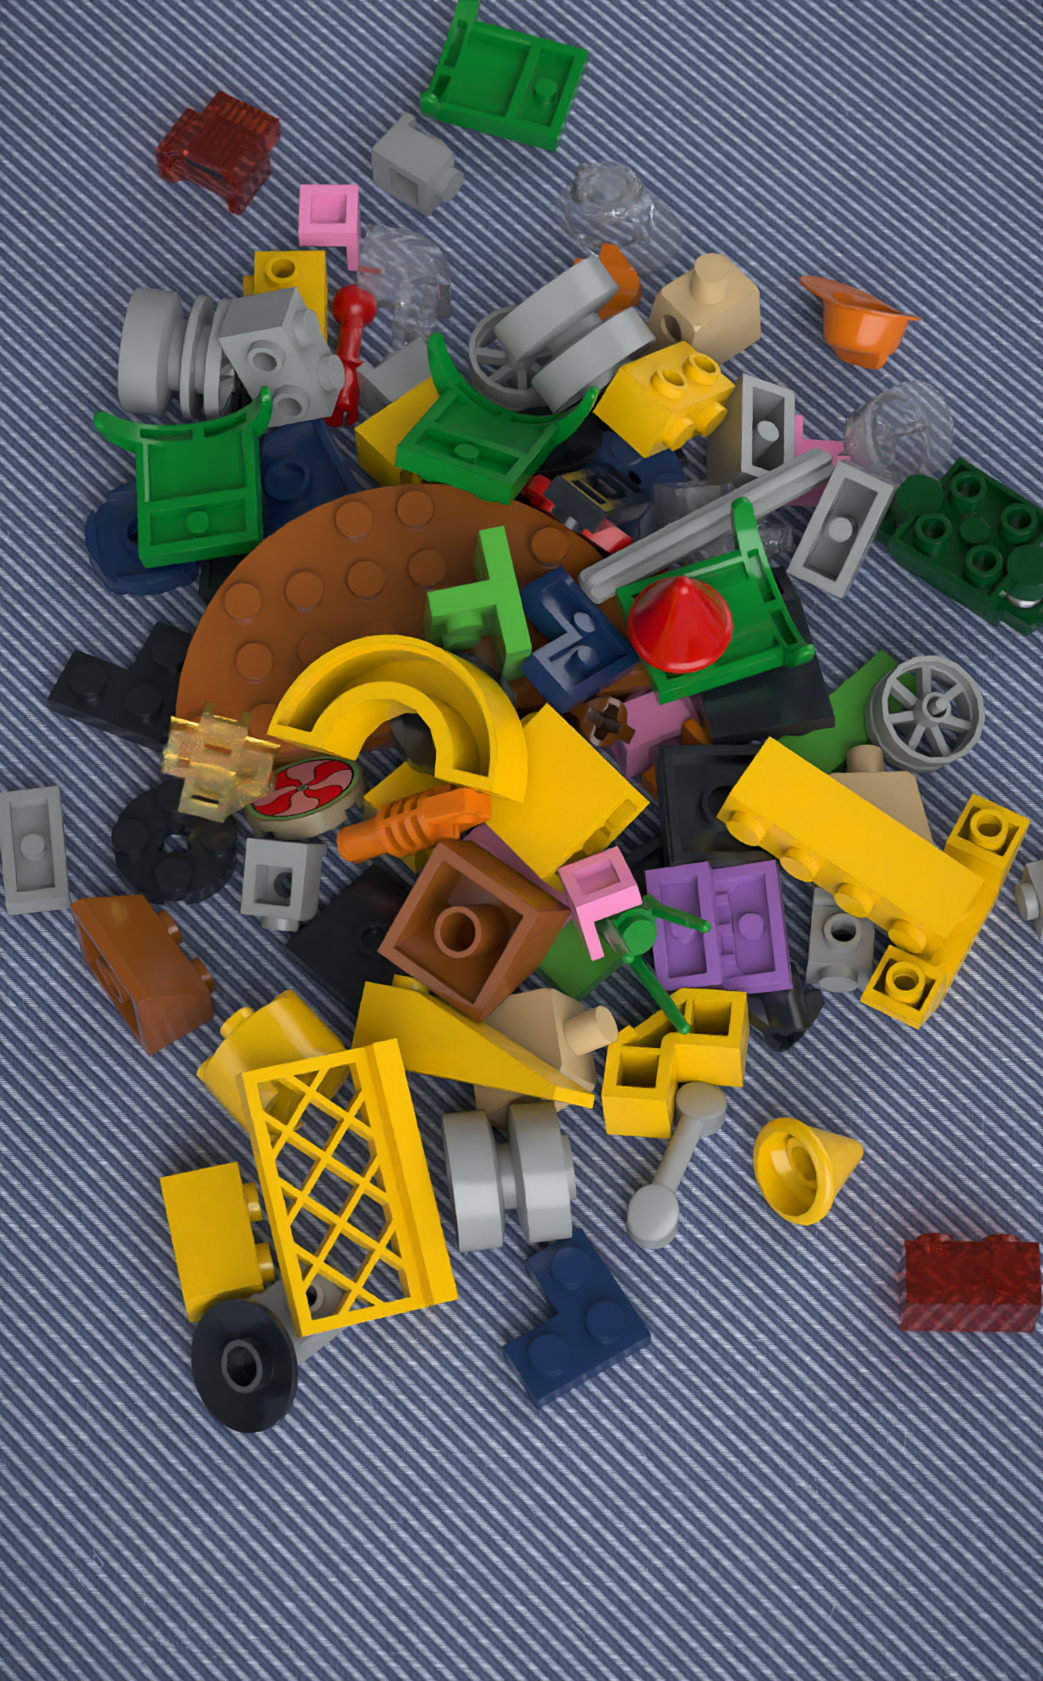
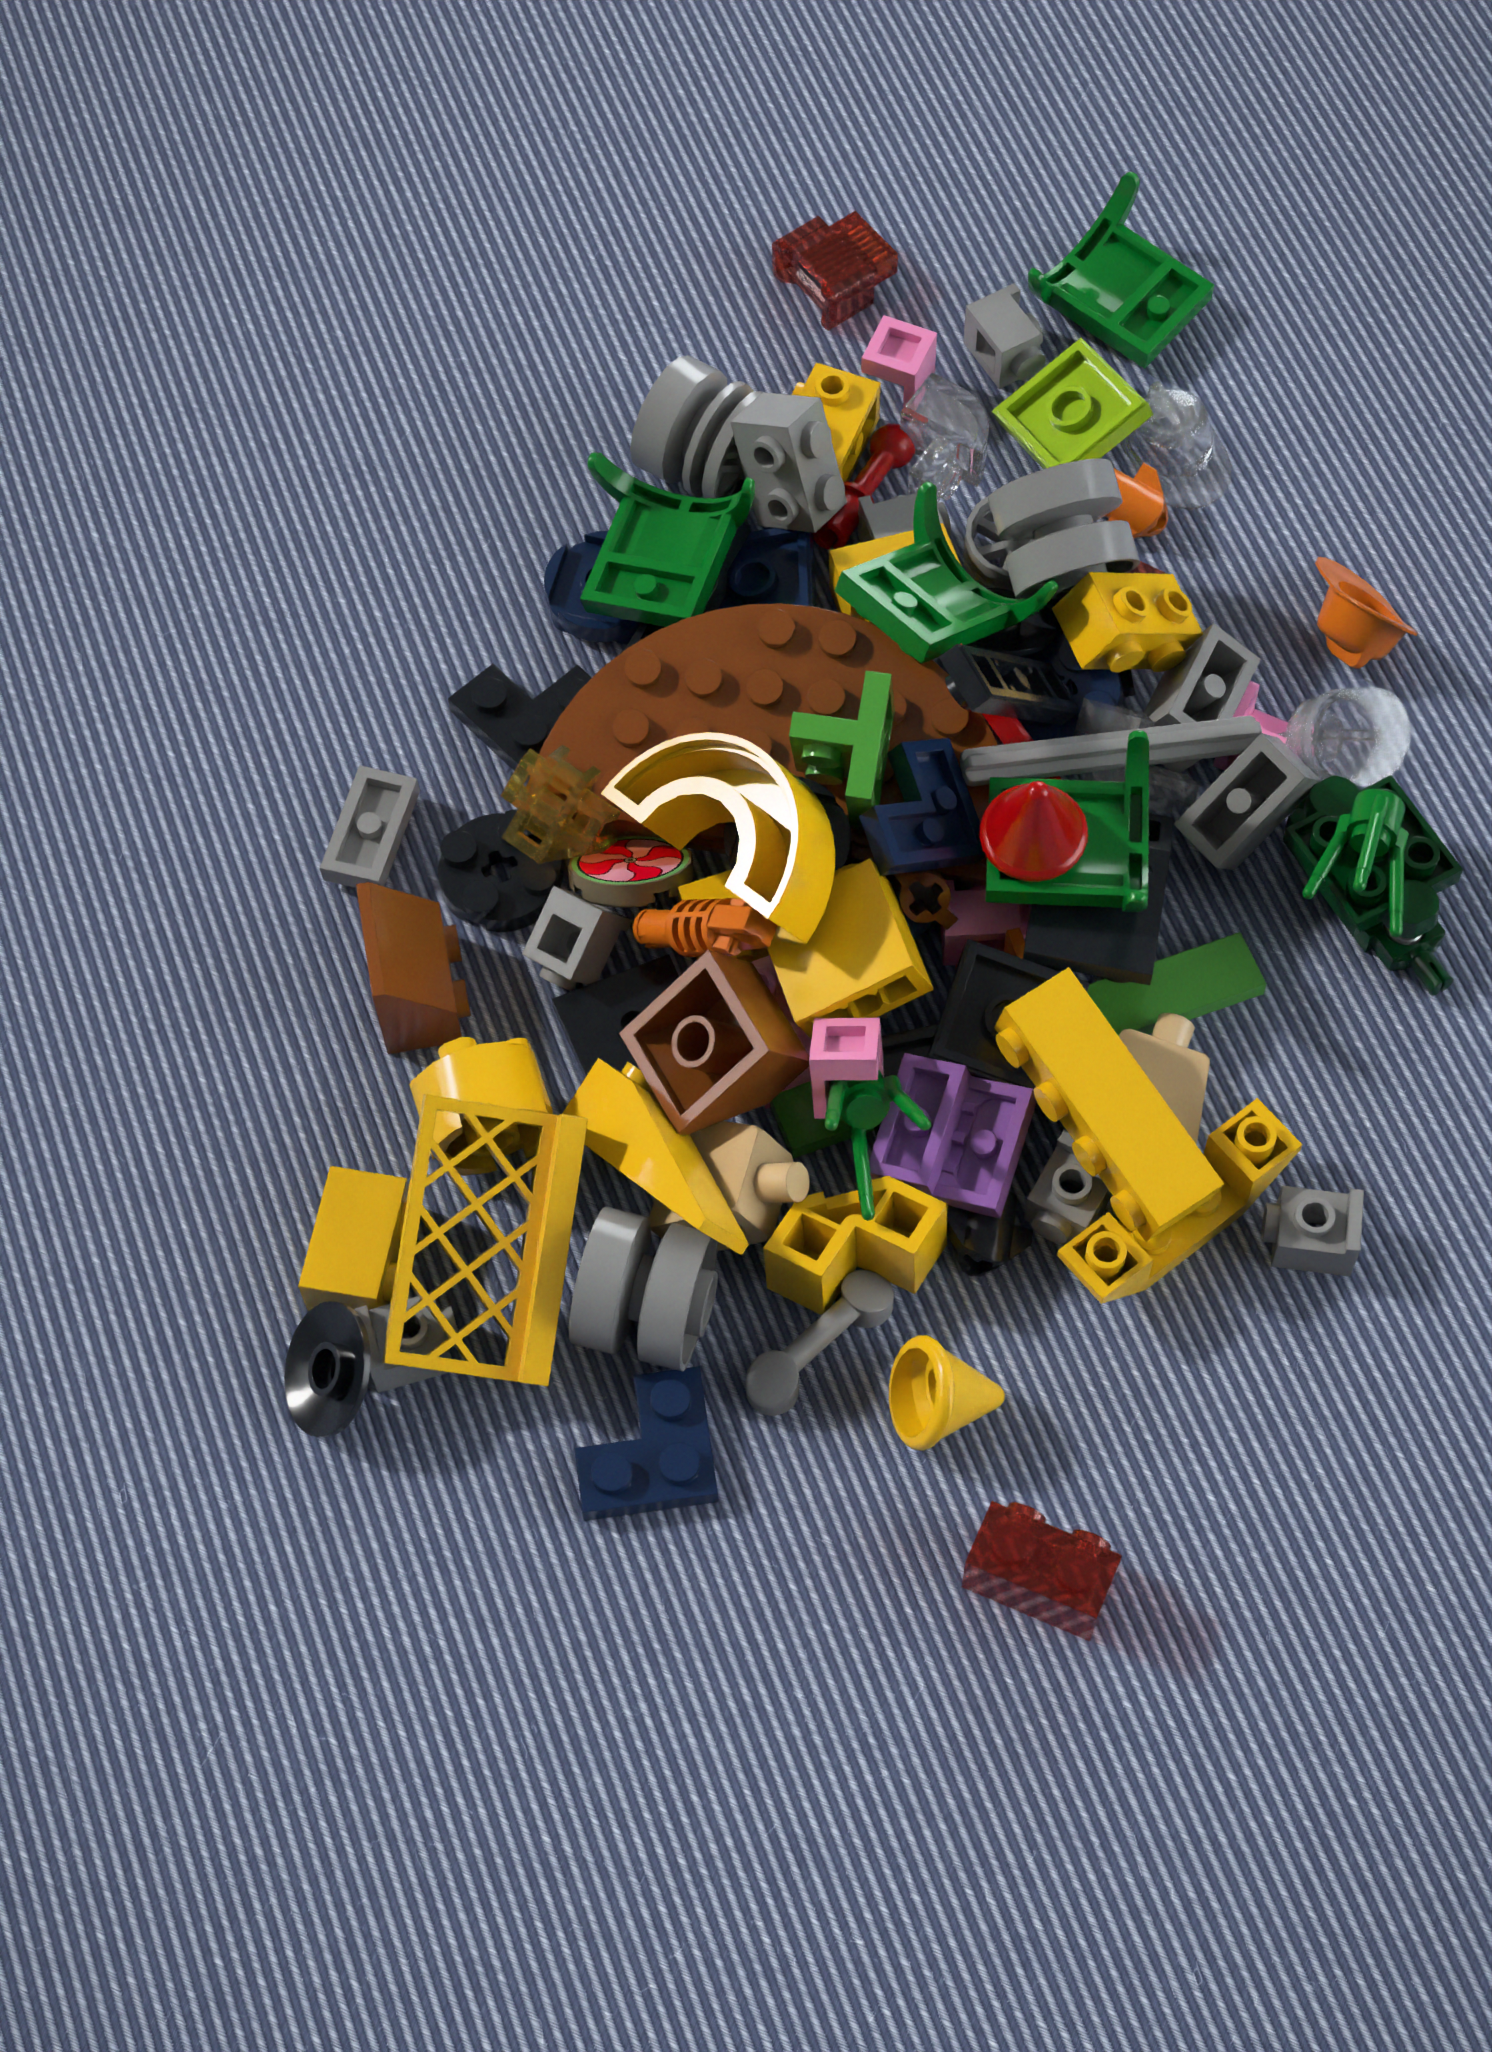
camera: 25 degrees right, 0 degrees up
(513, 218) = (1072, 409): none -> lime tile
(708, 308) = (1212, 557): tan torso -> none
(924, 714) = (1250, 1007): light grey wheel -> none
(974, 515) = (1372, 831): none -> green plant

